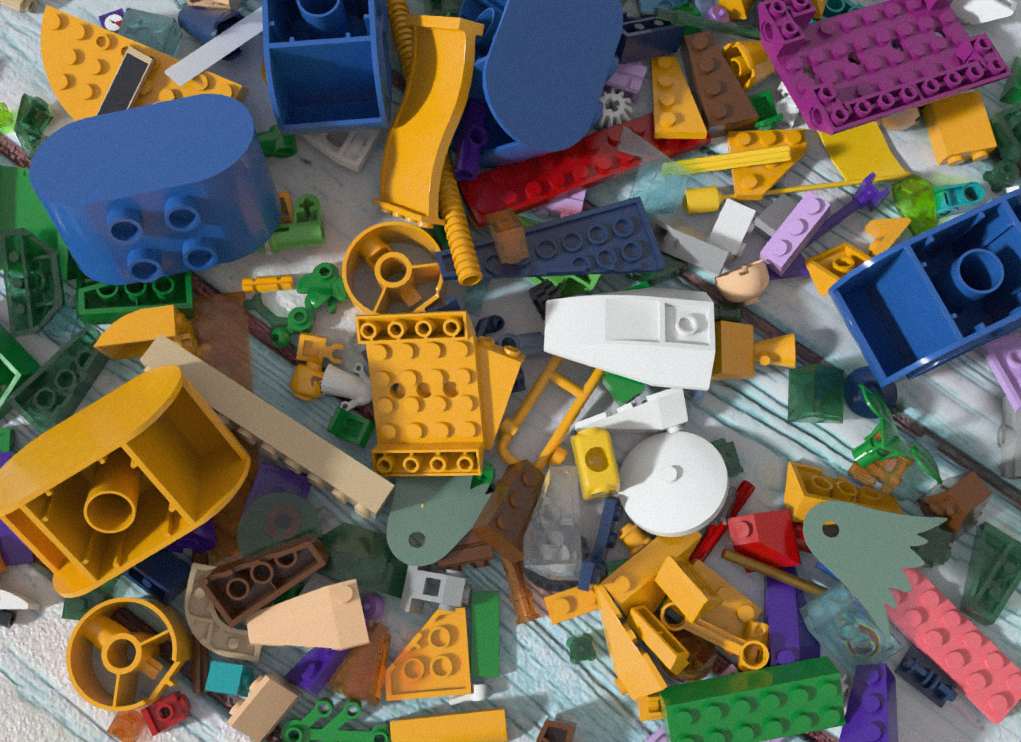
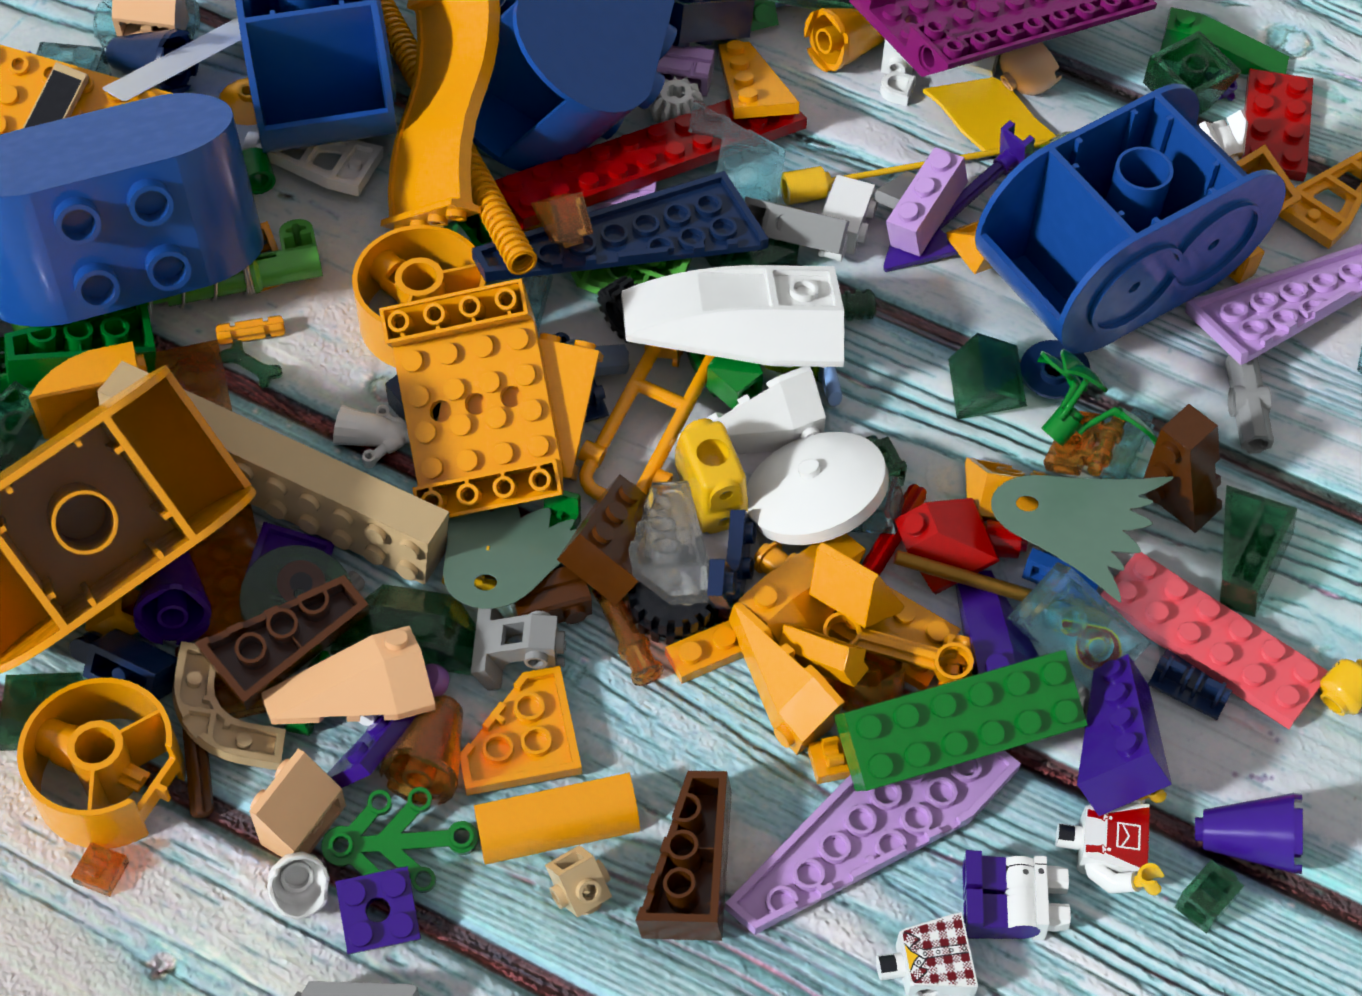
camera: 10 degrees left, 20 degrees down
(155, 715) = (158, 841): red brick -> none
(229, 679) = (239, 781): teal brick -> none
(299, 320) = (301, 363): green piece -> none
(307, 381) = (316, 427): light orange head -> none
(315, 348) = (321, 391): light orange plate -> none
(321, 287) = (324, 320): green plate -> none
(350, 427) = (390, 471): green bracket -> none
(471, 140) = (503, 126): dark purple piece -> none
(479, 692) = (591, 770): white hand -> none
(484, 633) = (591, 700): green tile -> none
(588, 652) = (720, 693): clear green plate -> none
(715, 87) = (805, 66): reddish brown wedge -> none
(733, 351) = (869, 341): light orange slope -> none
(736, 159) = (844, 131): yellow axle -> none
(744, 283) = (873, 263): light nougat cylinder -> none
(756, 180) = (875, 136): light orange plate -> none
(766, 110) = (865, 86): green bracket -> none
(776, 351) = (924, 337): light orange piece -> none
(937, 549) = (1168, 532): clear green brick -> none
(959, 129) = (1108, 77): light orange brick -> none

